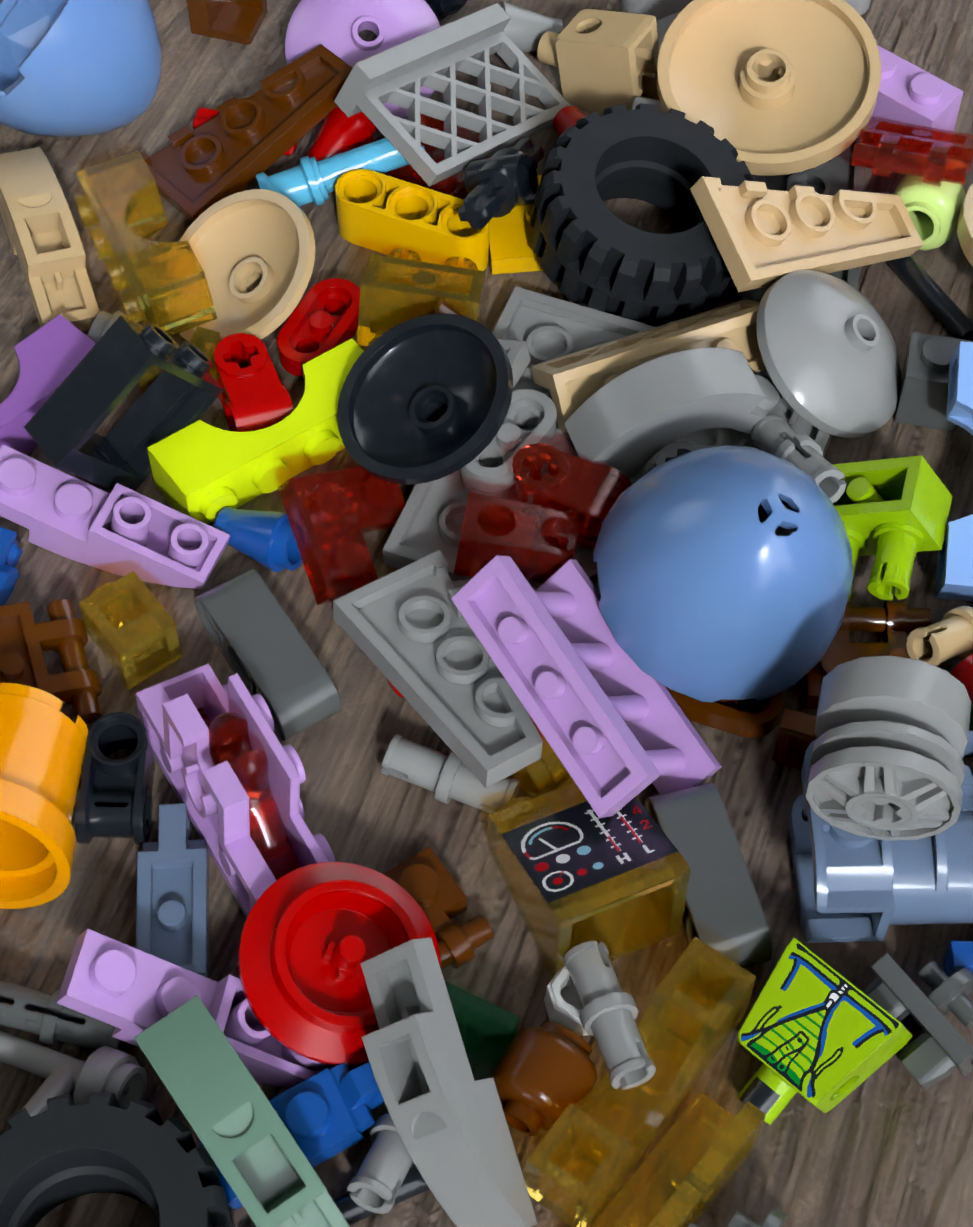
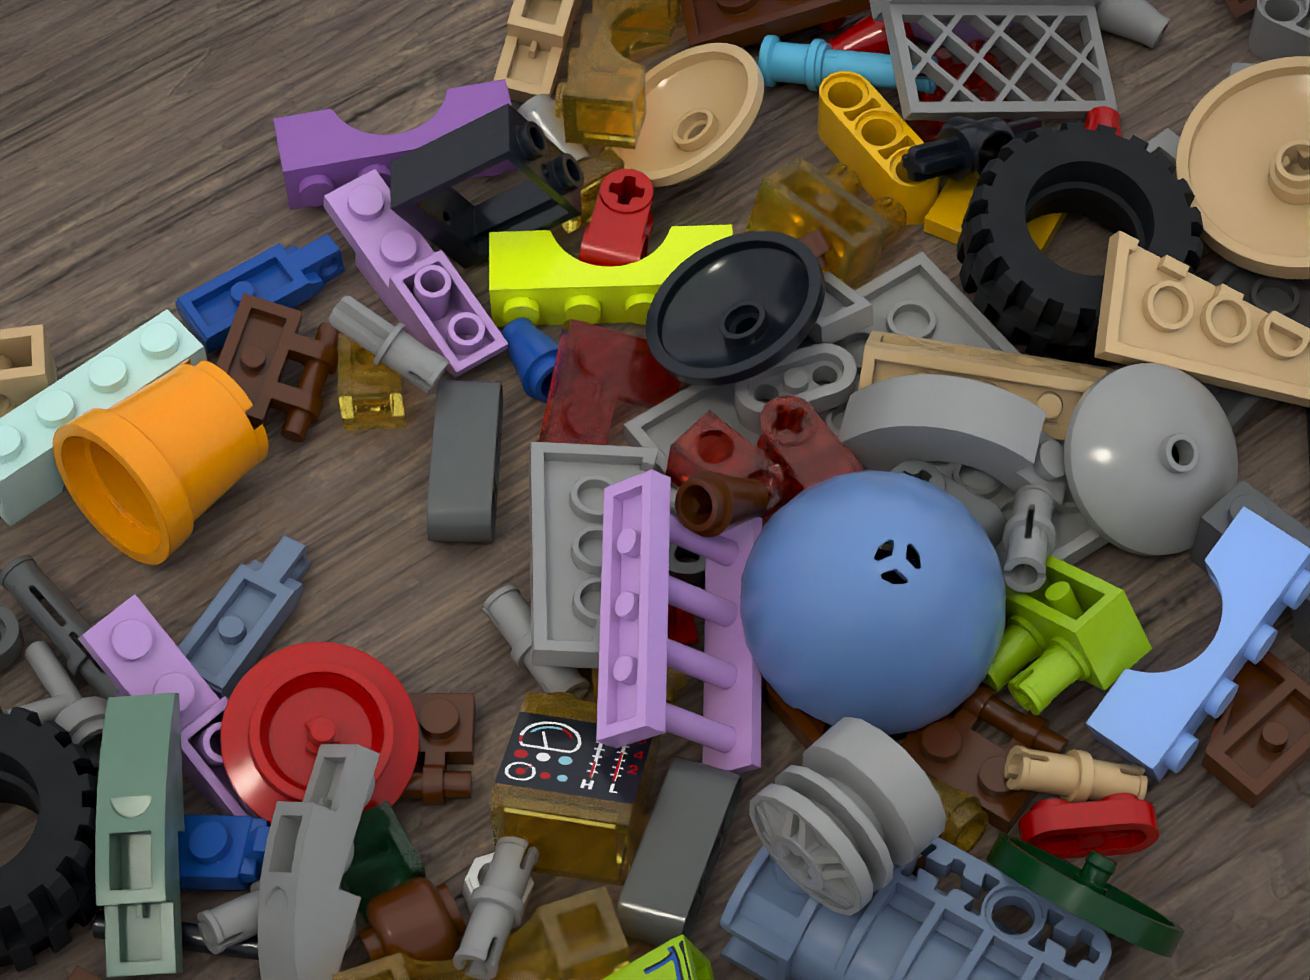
camera: 35 degrees right, 0 degrees up
(118, 792) = (261, 506): black piece -> none
(140, 584) = (389, 343): none -> light grey axle
(233, 777) = (352, 543): lavender piece -> none
(313, 329) = (721, 197): red plate -> none
(550, 560) = (718, 502): none -> reddish brown cone
(604, 58) = (1166, 74): tan torso -> none

